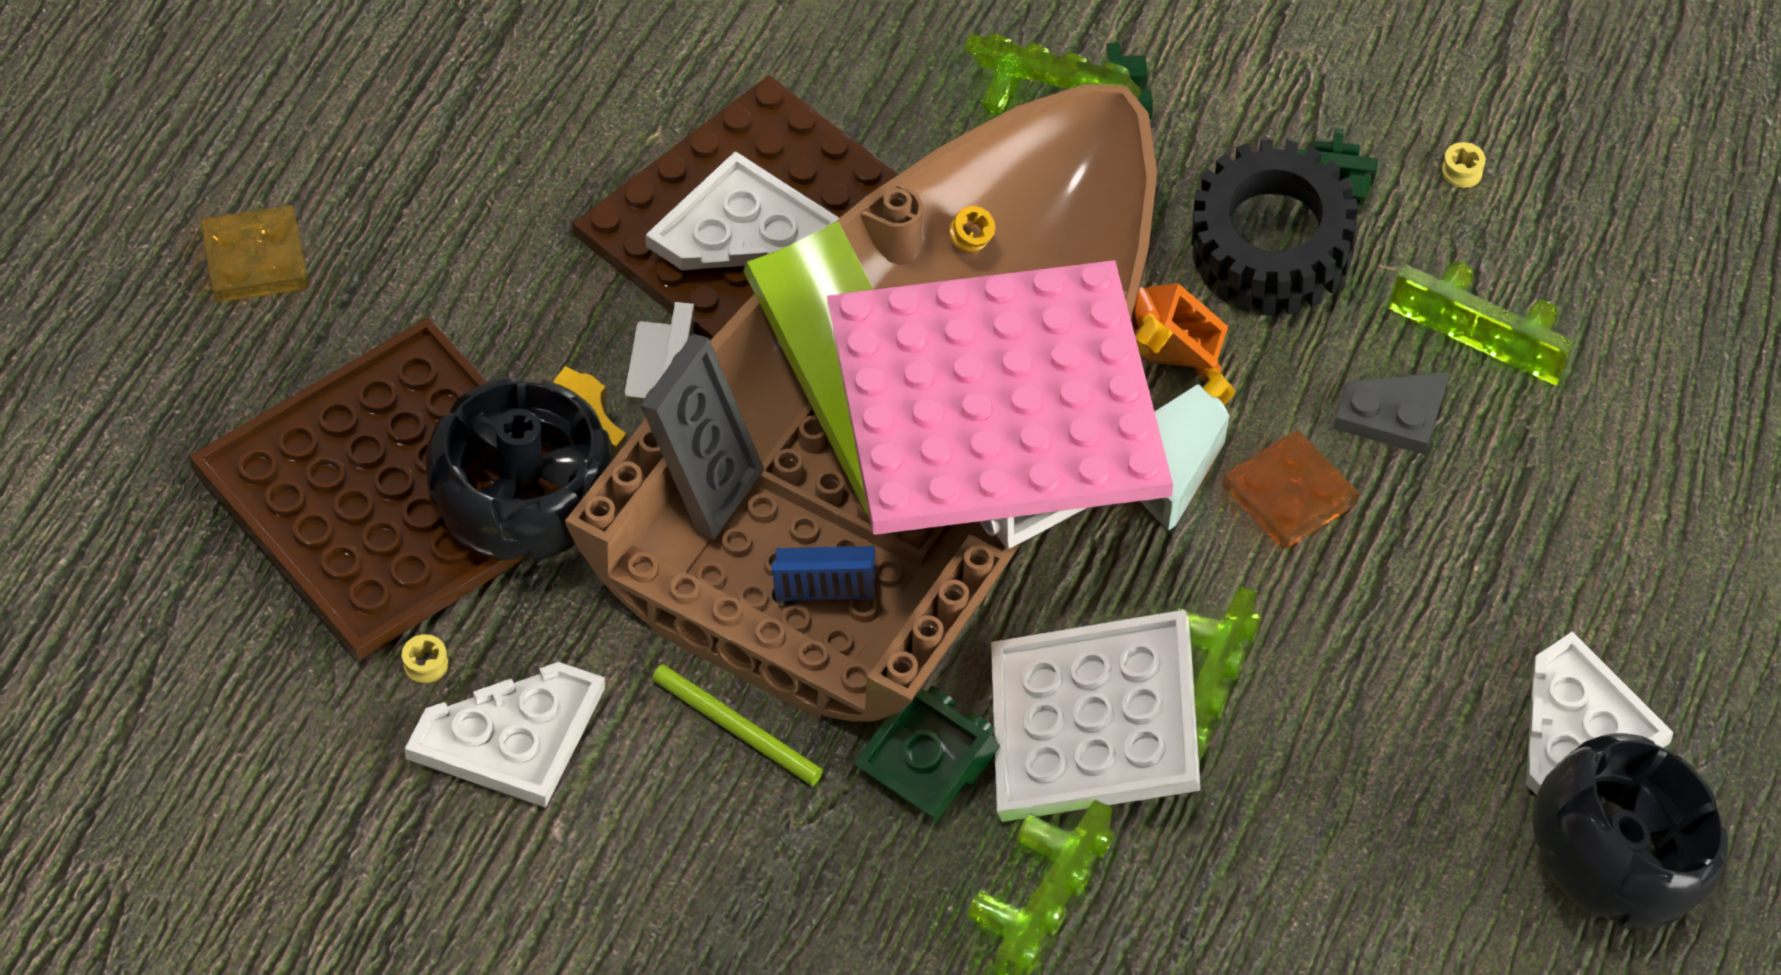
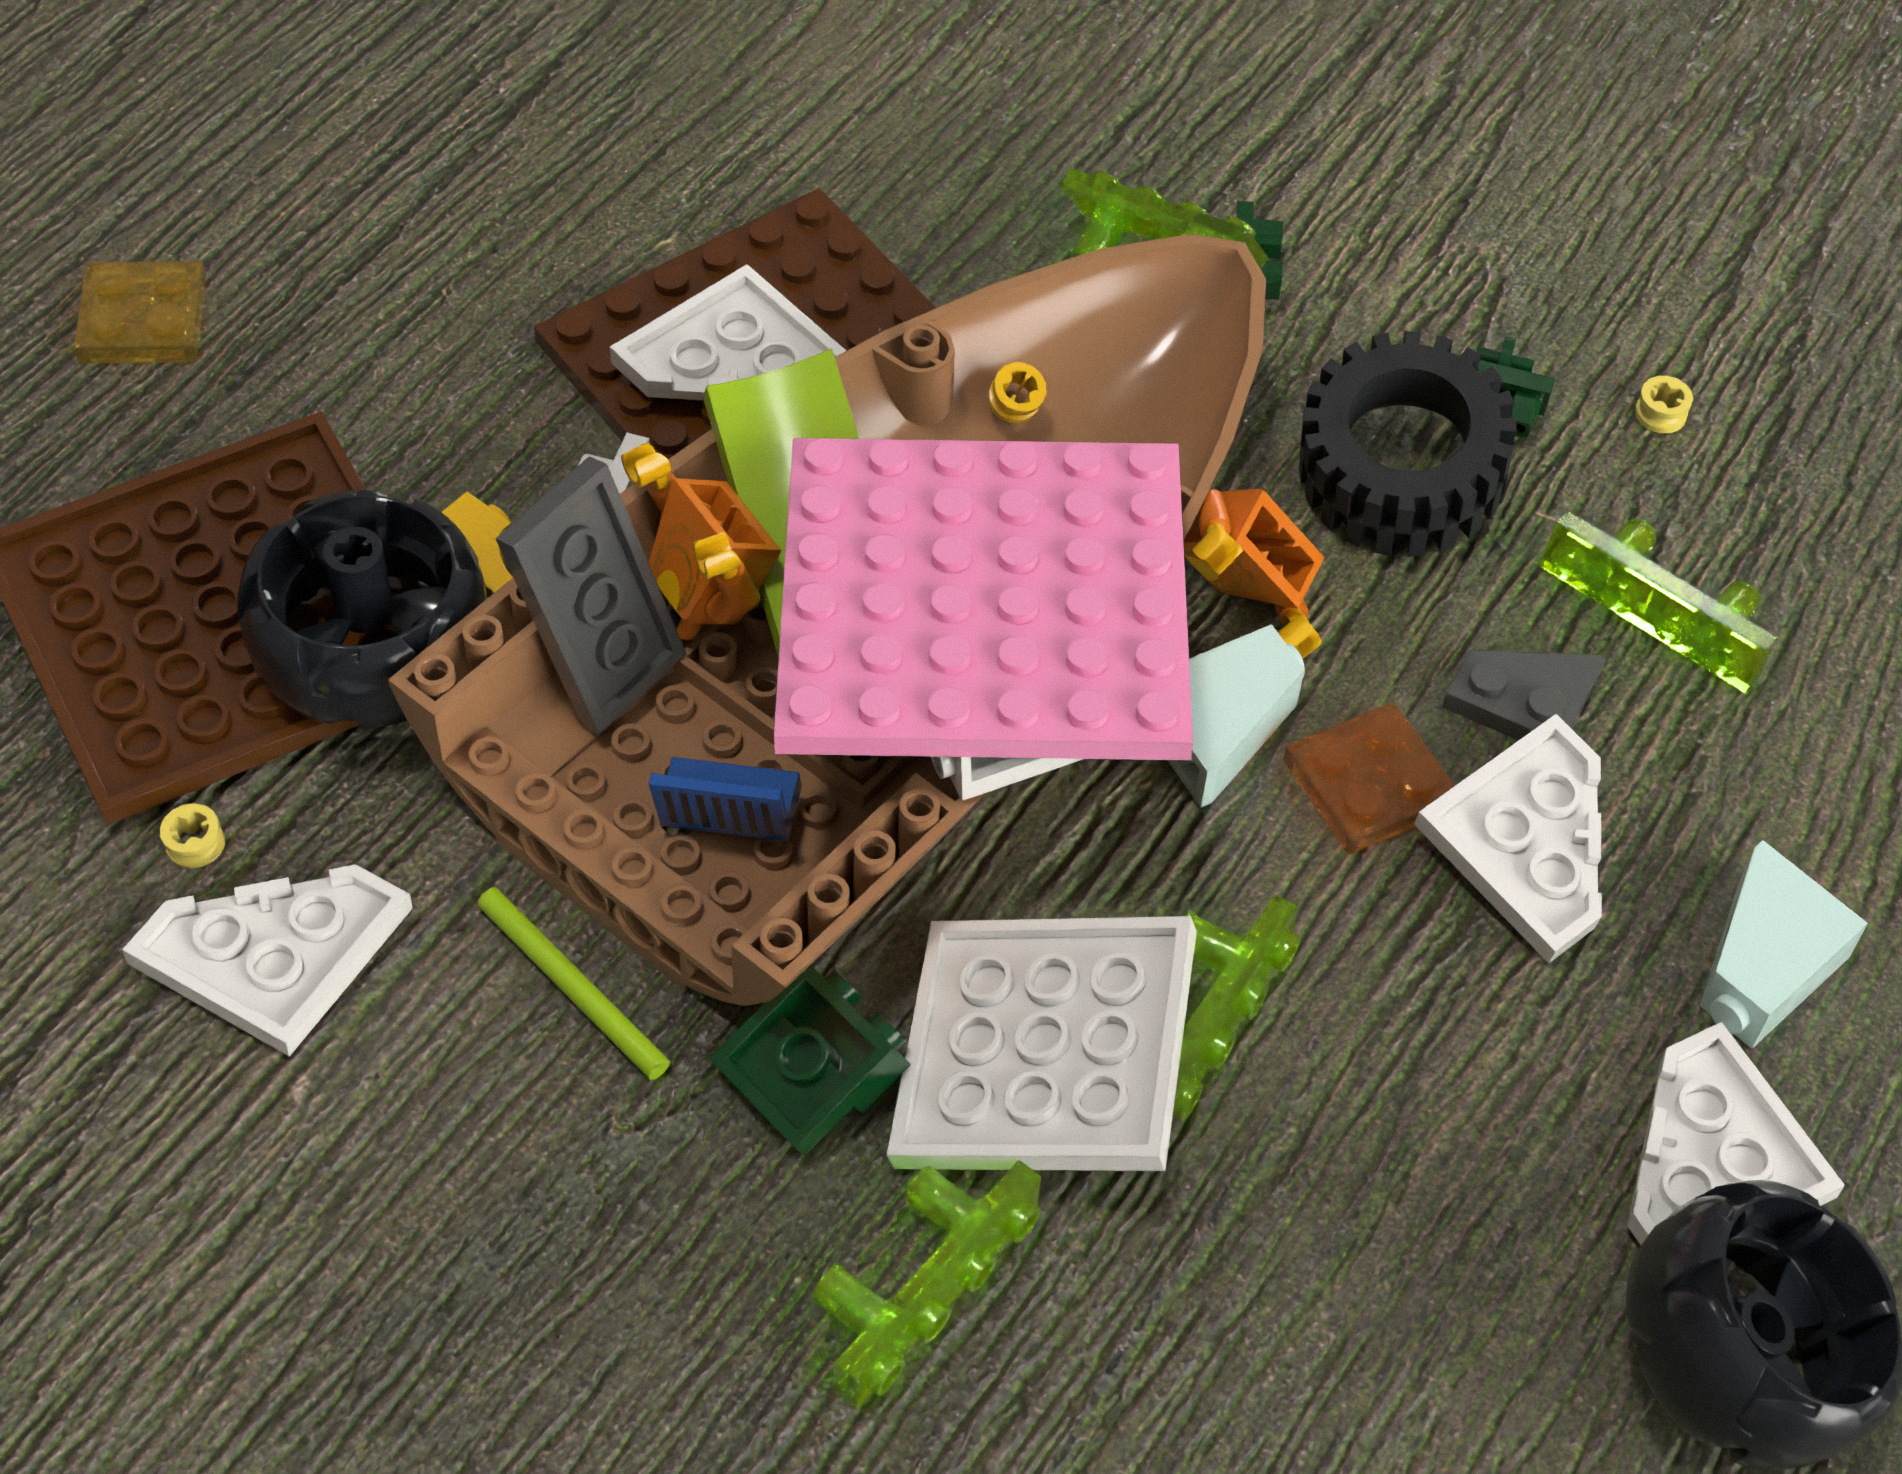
camera: 10 degrees right, 0 degrees up
(771, 384) = (707, 545): none -> orange torso
(1414, 515) = (1529, 835): none -> white plate
(1604, 571) = (1775, 946): none -> light aqua slope

